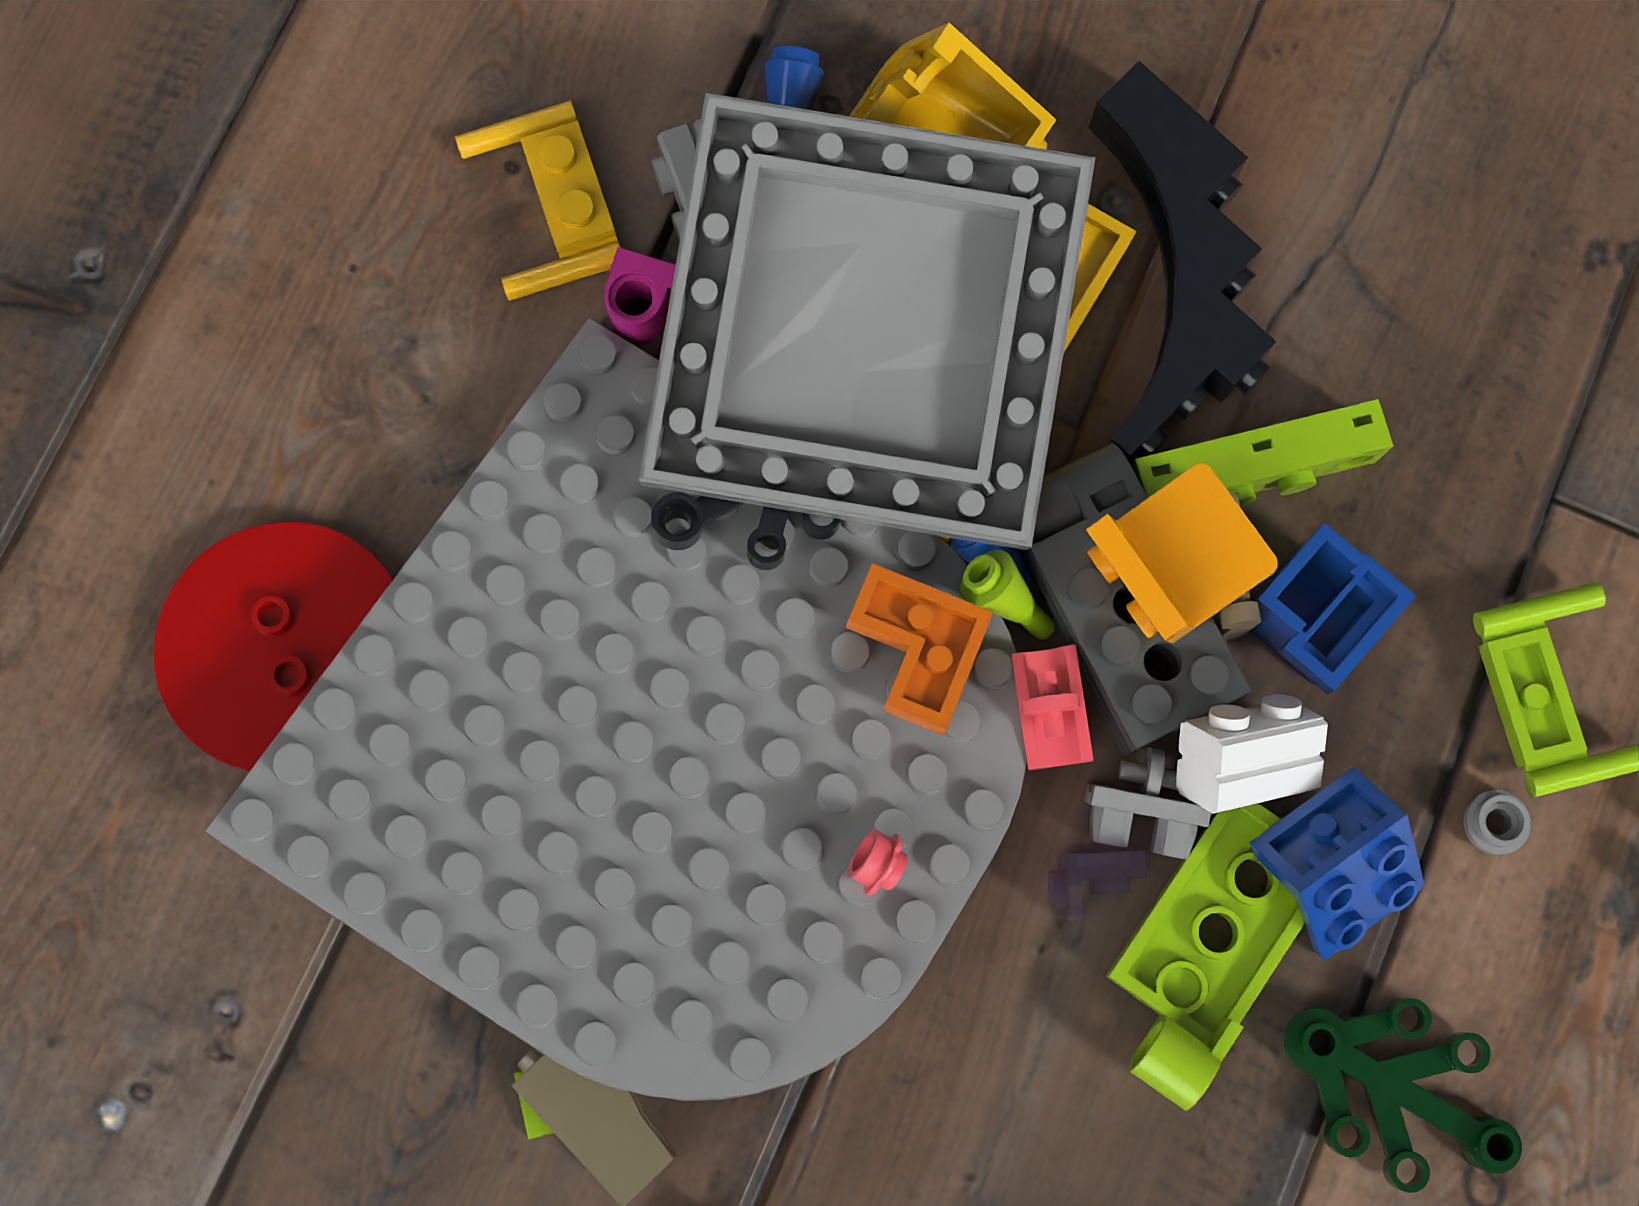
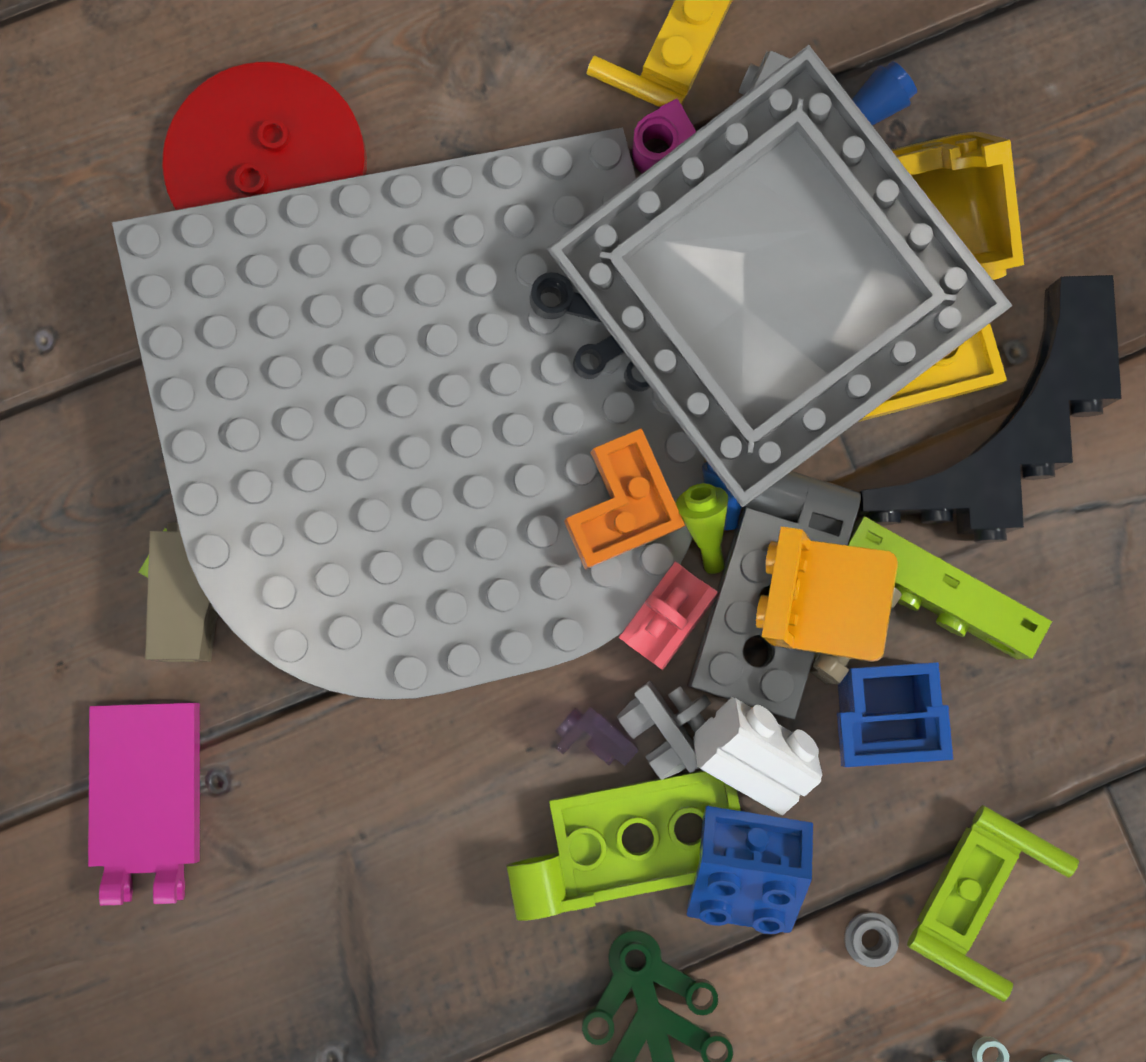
camera: 50 degrees right, 5 degrees up
(878, 862) = (472, 605): coral plate -> none

